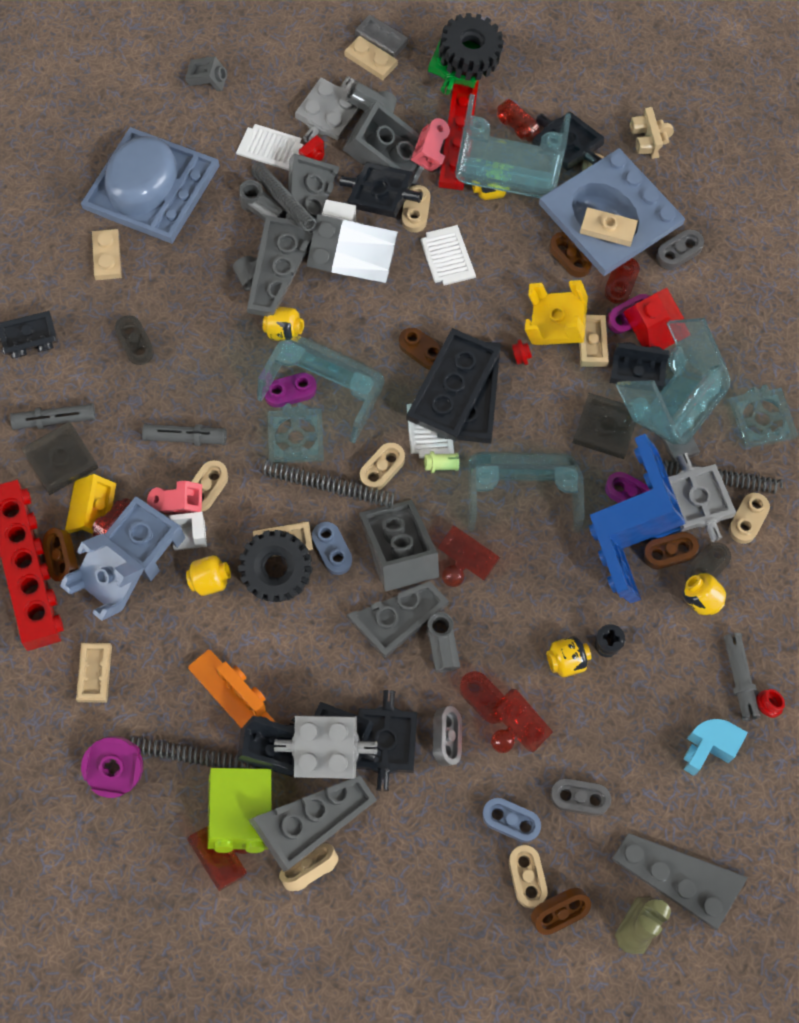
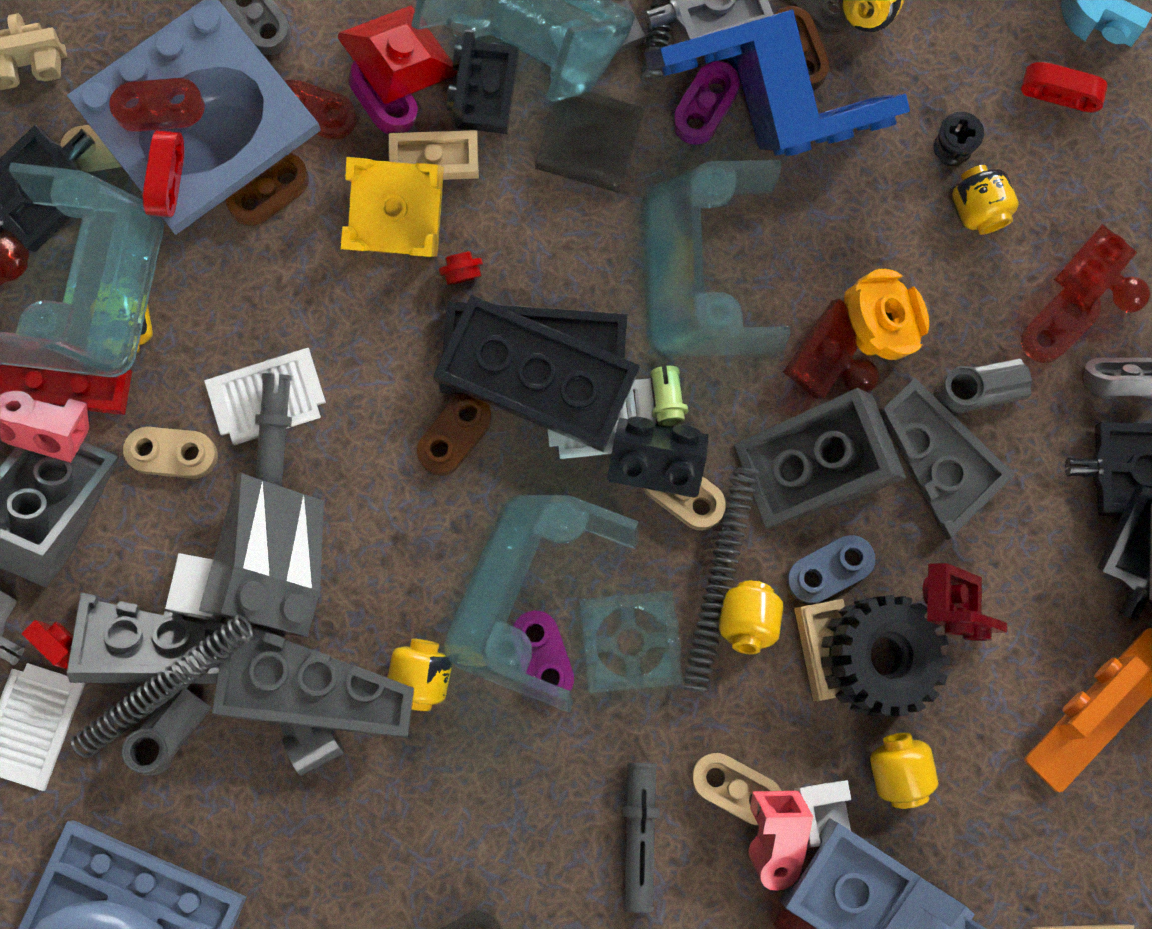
camera: 90 degrees left, 10 degrees up
(304, 497) = (751, 617): none -> yellow head
(305, 608) = (956, 603): none -> dark red bracket
(381, 189) = (135, 514): black plate -> none
(403, 449) = (658, 456): none -> black bracket
(425, 254) = (272, 428): none -> dark grey pin
(476, 576) = (867, 310): none -> light orange plate
(569, 190) = (163, 173): none -> red beam
(608, 227) = (235, 113): tan plate -> none
(612, 186) = (155, 107): none -> clear red plate
(649, 715) = (1064, 86): none -> red beam

